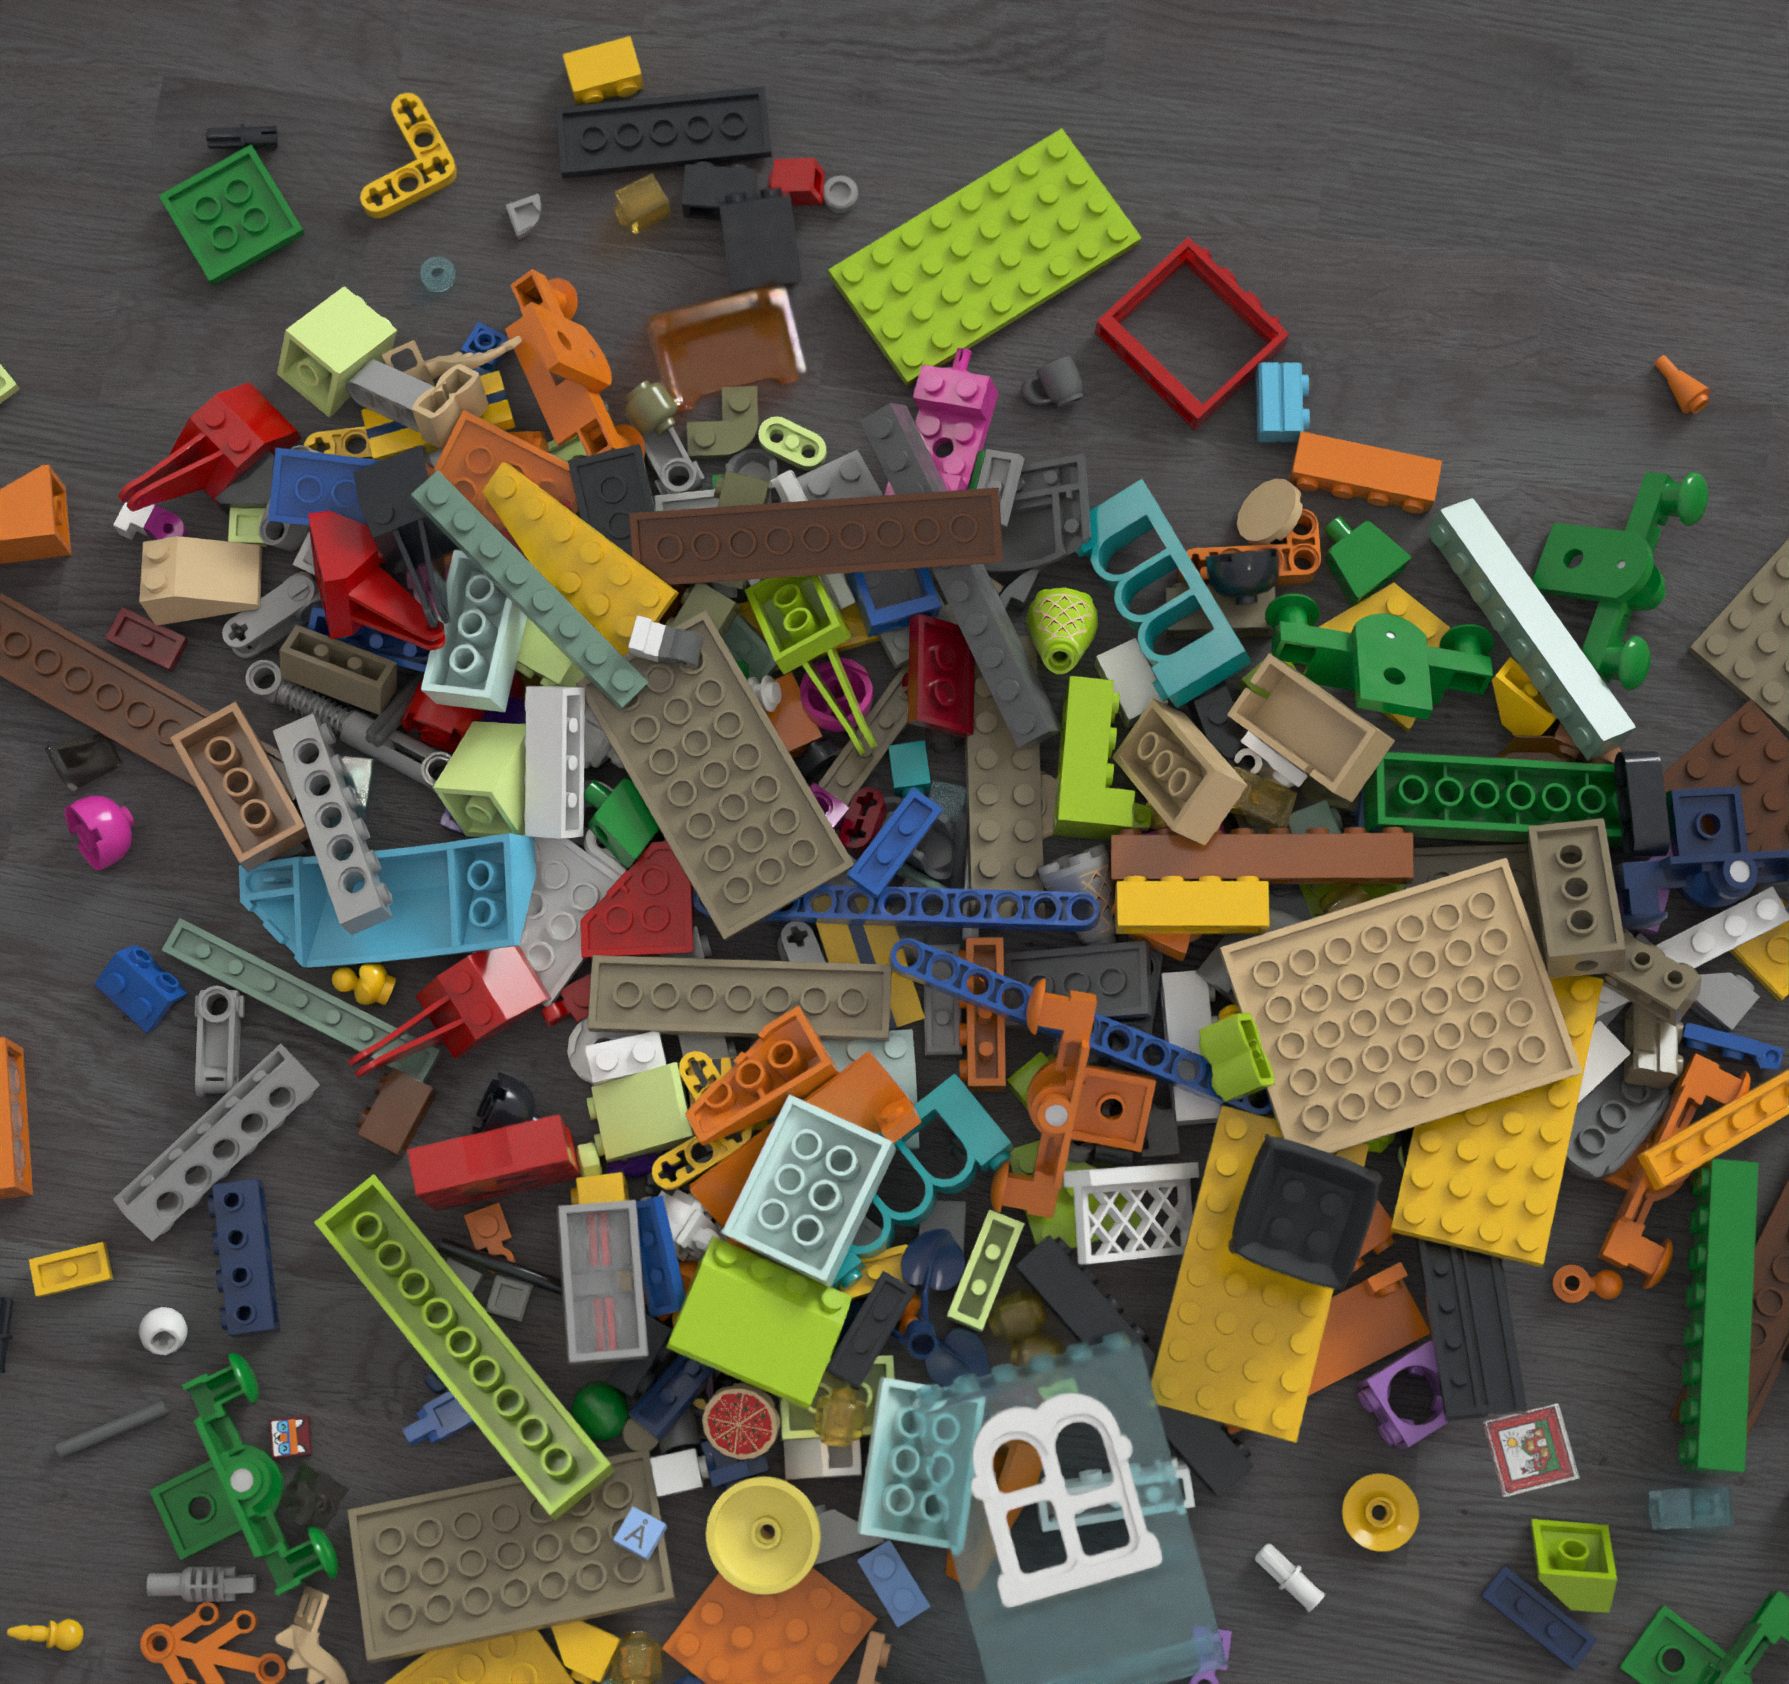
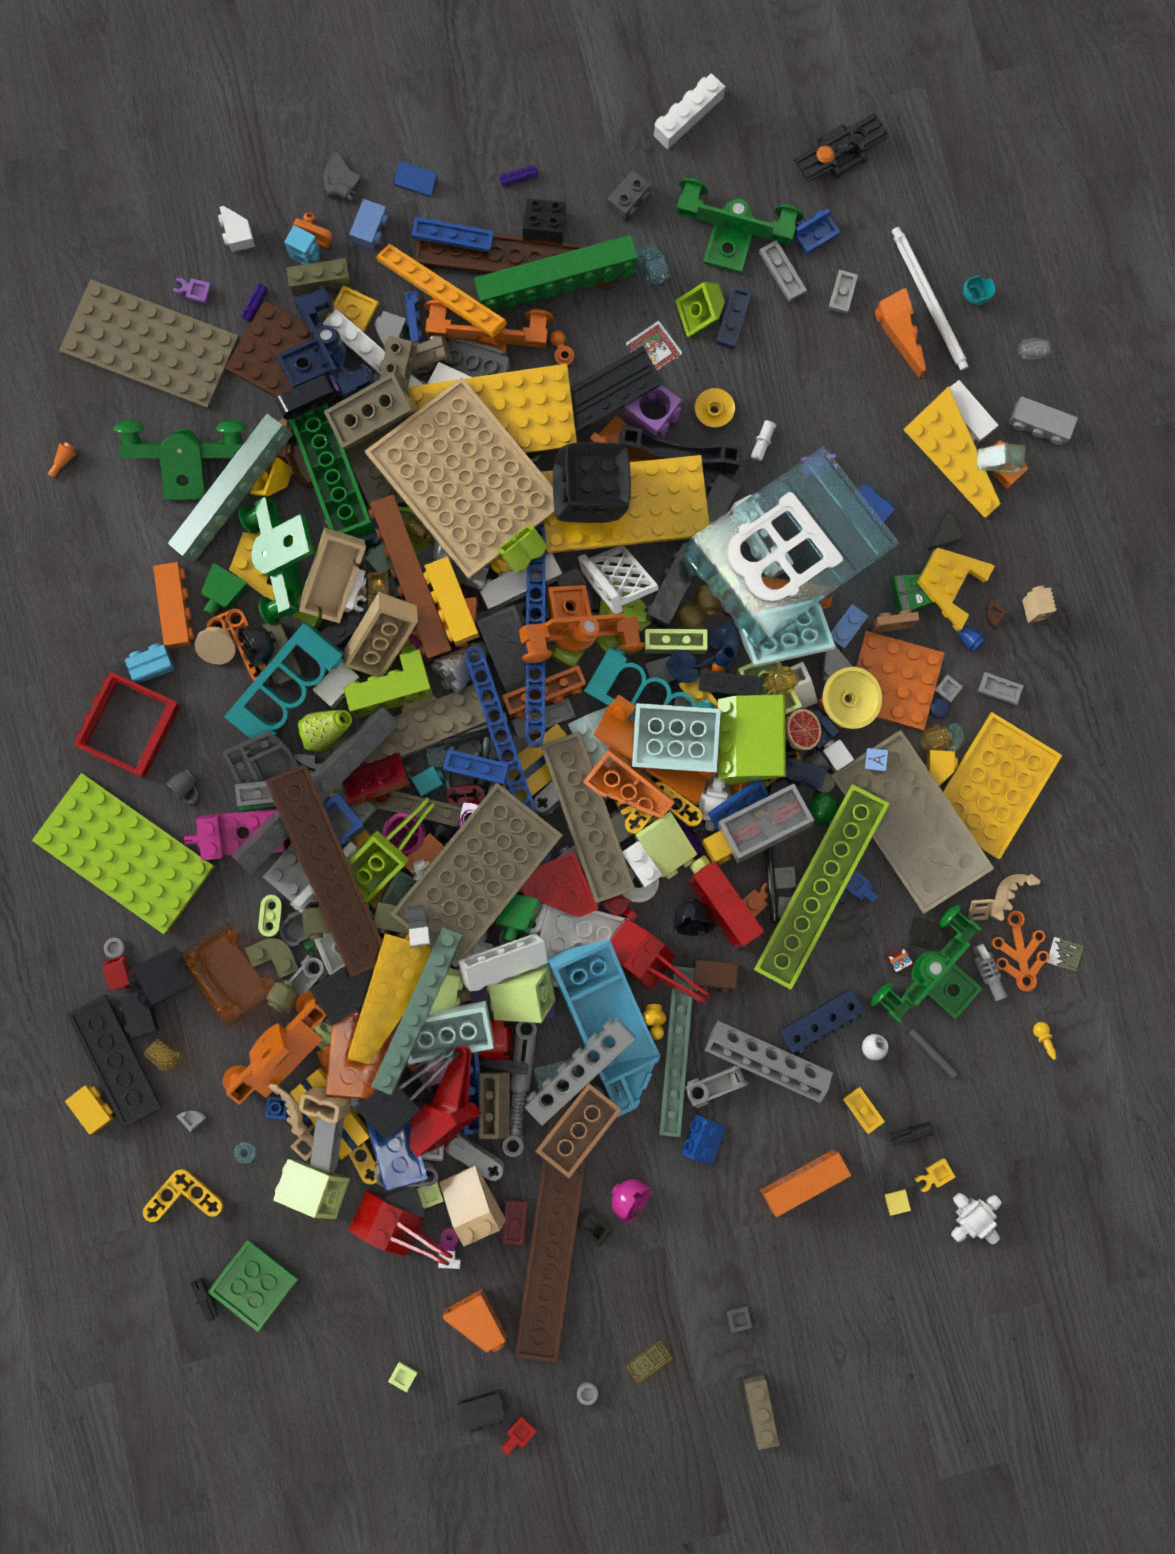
camera: 115 degrees left, 5 degrees up
(1343, 1370) = (714, 457): none -> black arch

